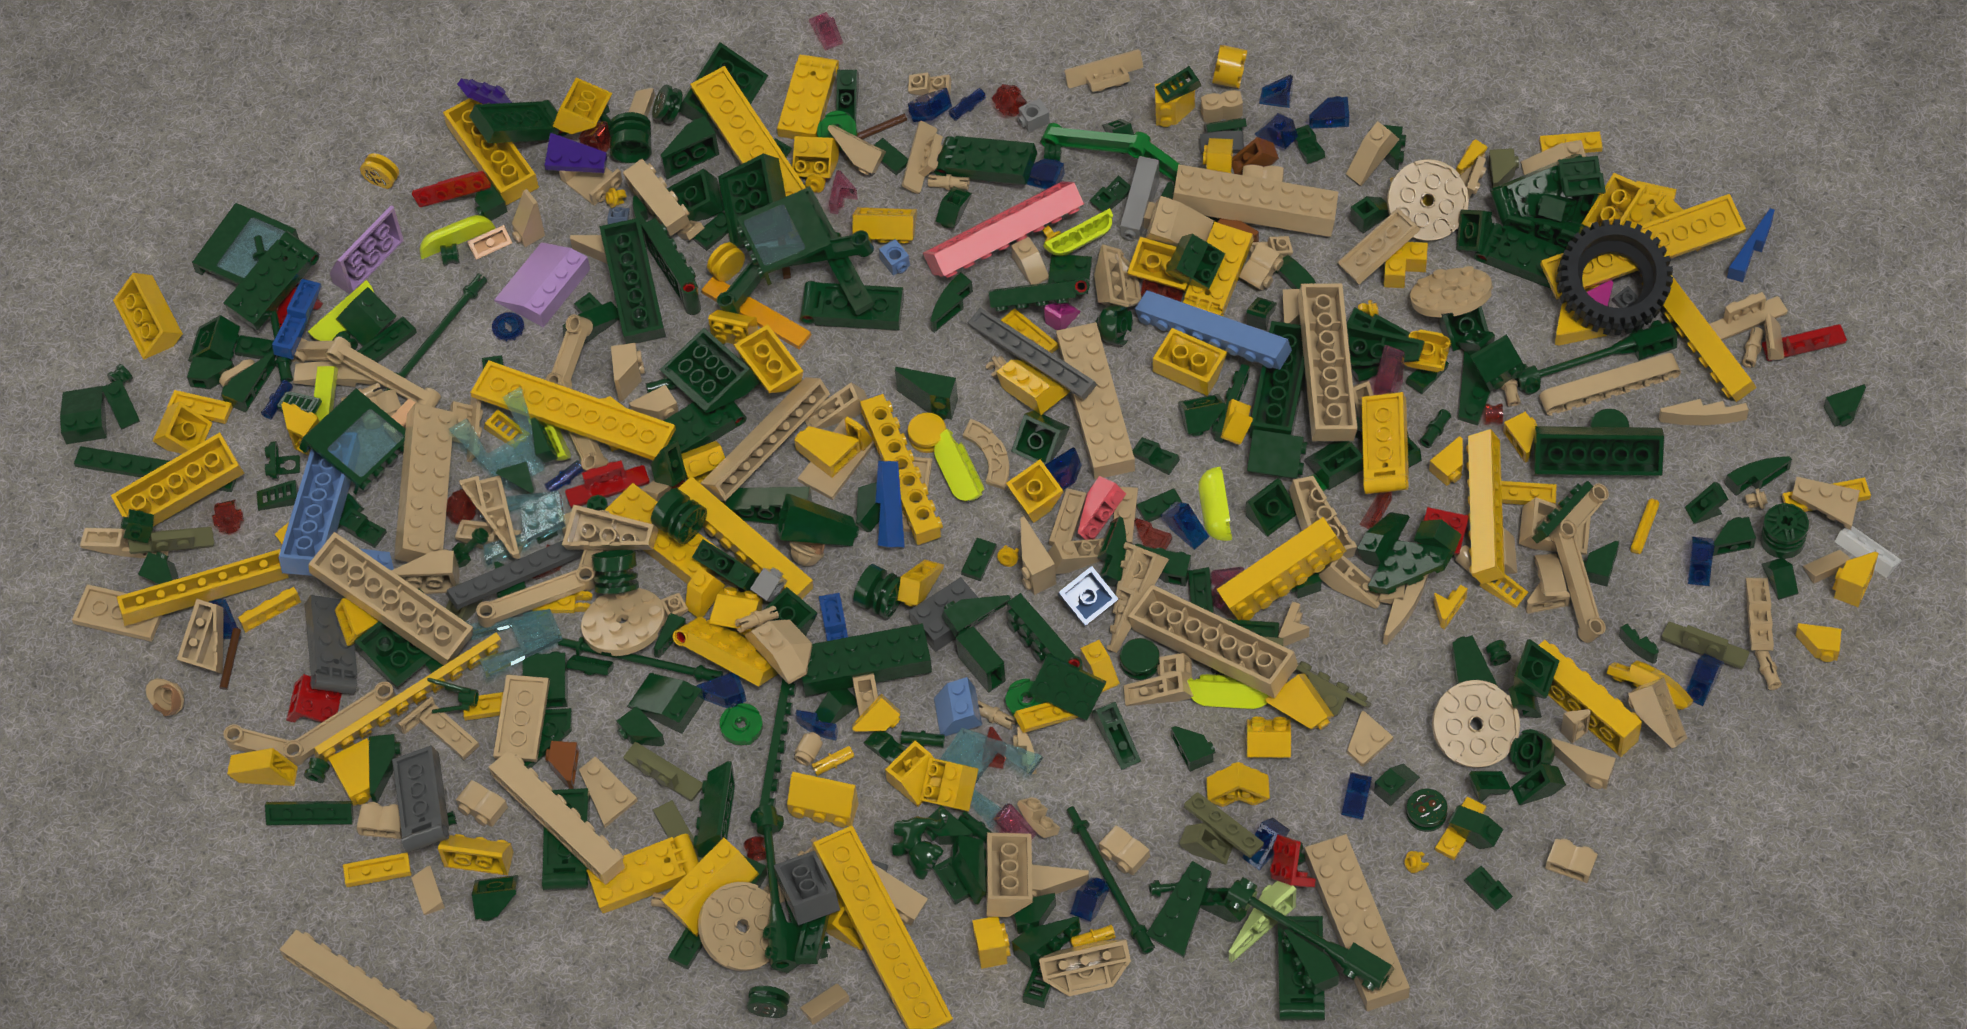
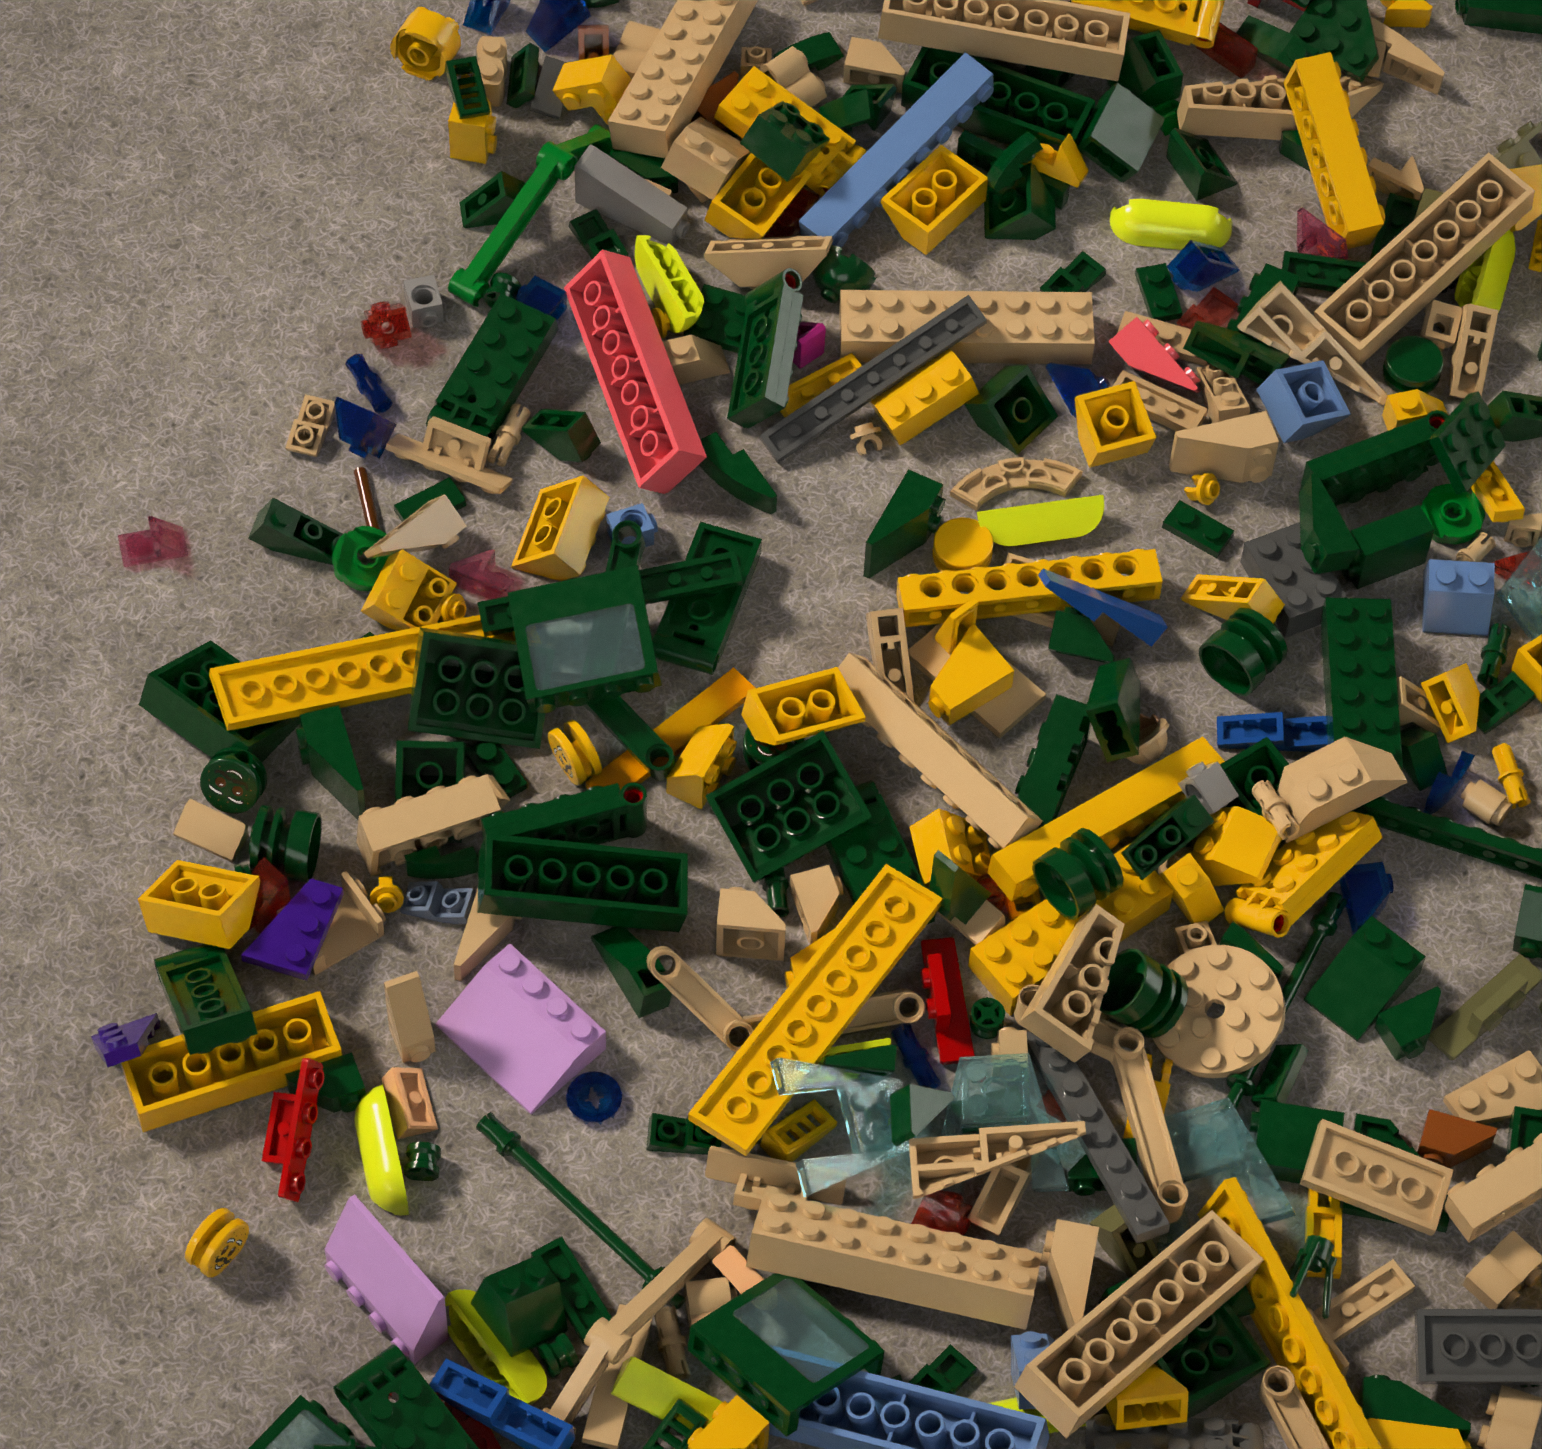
camera: 85 degrees left, 0 degrees up
(462, 551) = (1022, 1186): dark green hinge -> none
(586, 303) = (591, 970): dark green plate -> none
(737, 714) = (1419, 902): green plate -> none
(807, 96) = (280, 589): yellow hinge -> none
(1105, 72) = (378, 198): tan bracket -> none
(1222, 392) = (1005, 169): none -> dark green slope
(1243, 300) = (850, 110): none -> dark green slope

